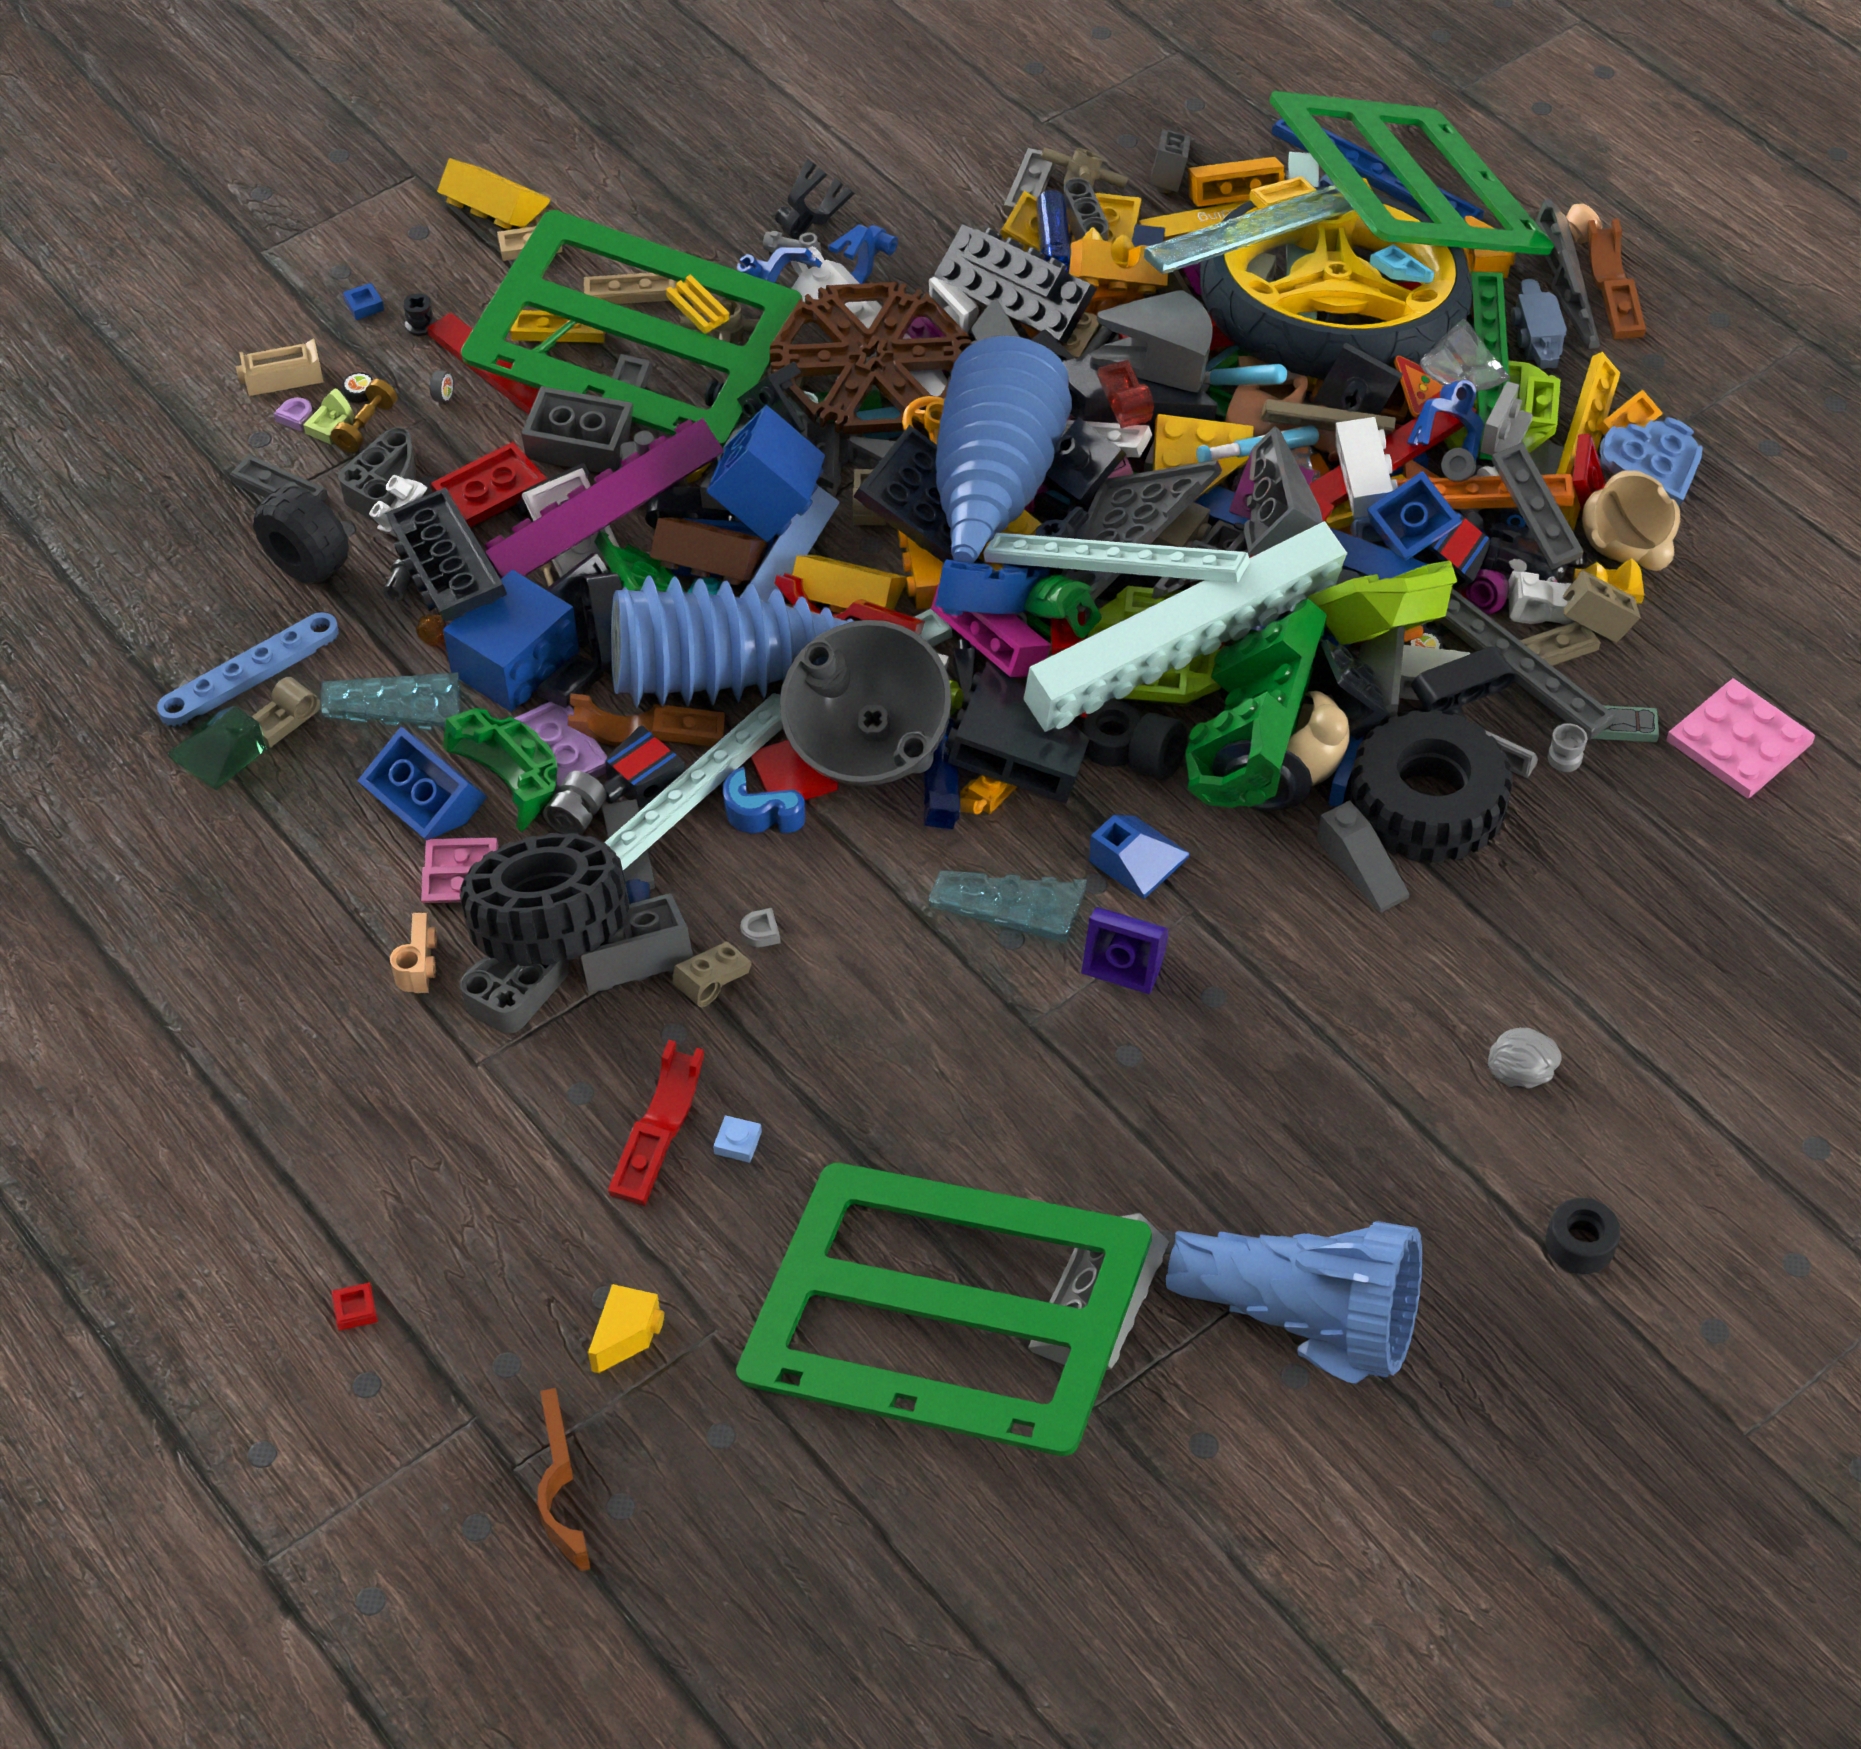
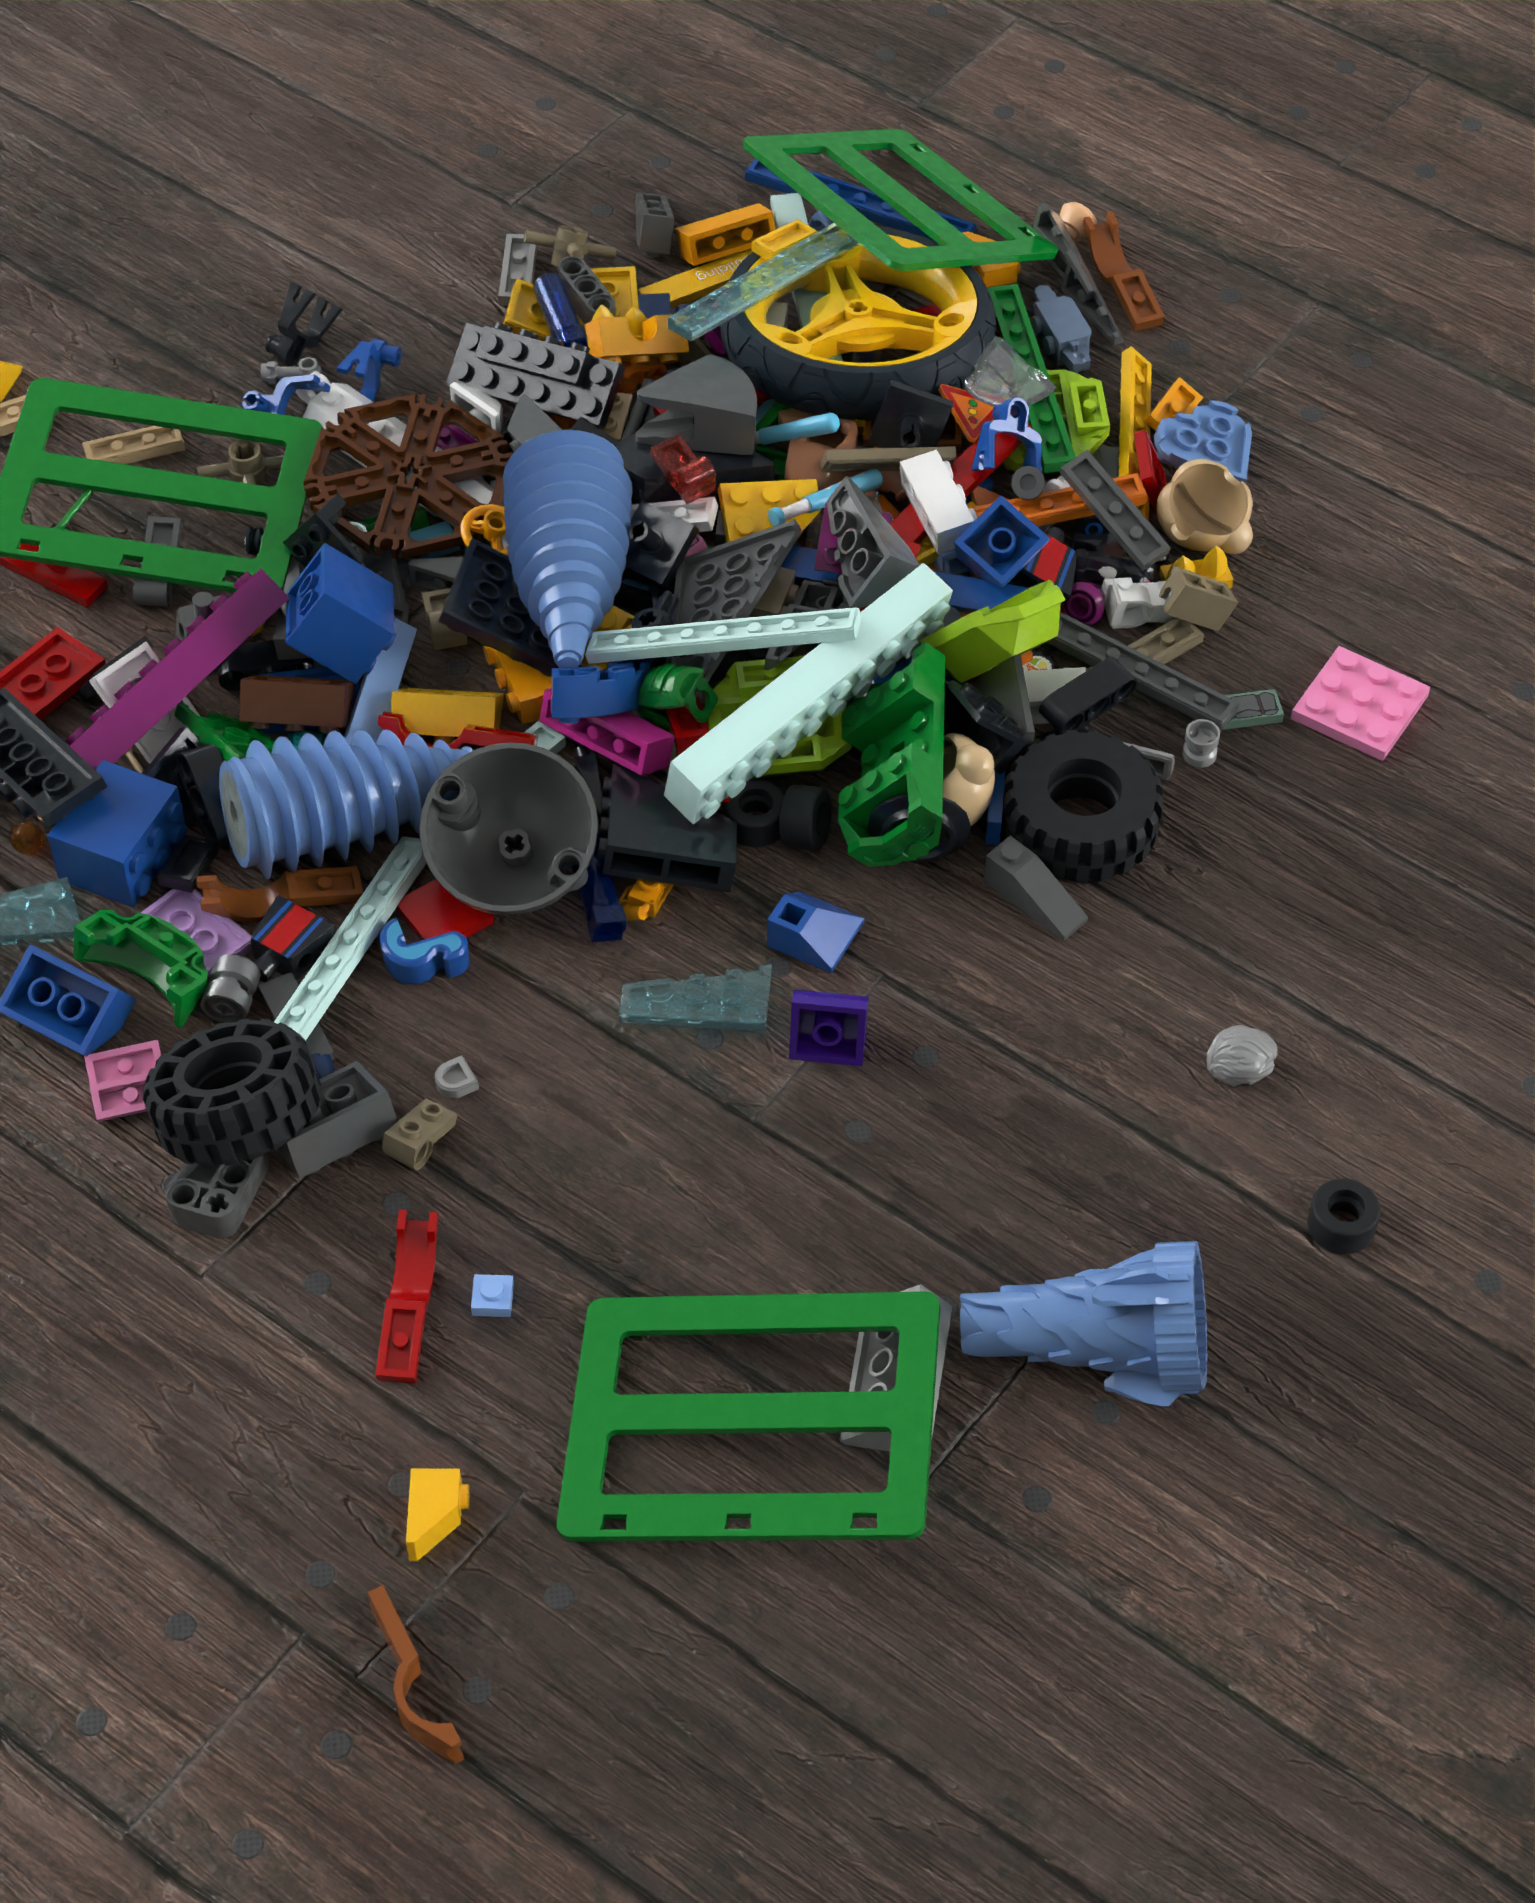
camera: 15 degrees left, 0 degrees up
(354, 1306) = (145, 1549): red tile -> none
(416, 957) = (108, 1179): light nougat plate -> none
(541, 325) = (57, 500): yellow plate -> none
(576, 429) = (124, 603): dark grey slope -> none
(701, 301) = (220, 447): yellow tile -> none
(1400, 265) = (920, 293): medium azure tile -> none
(1506, 422) = (1065, 433): light grey bracket -> none

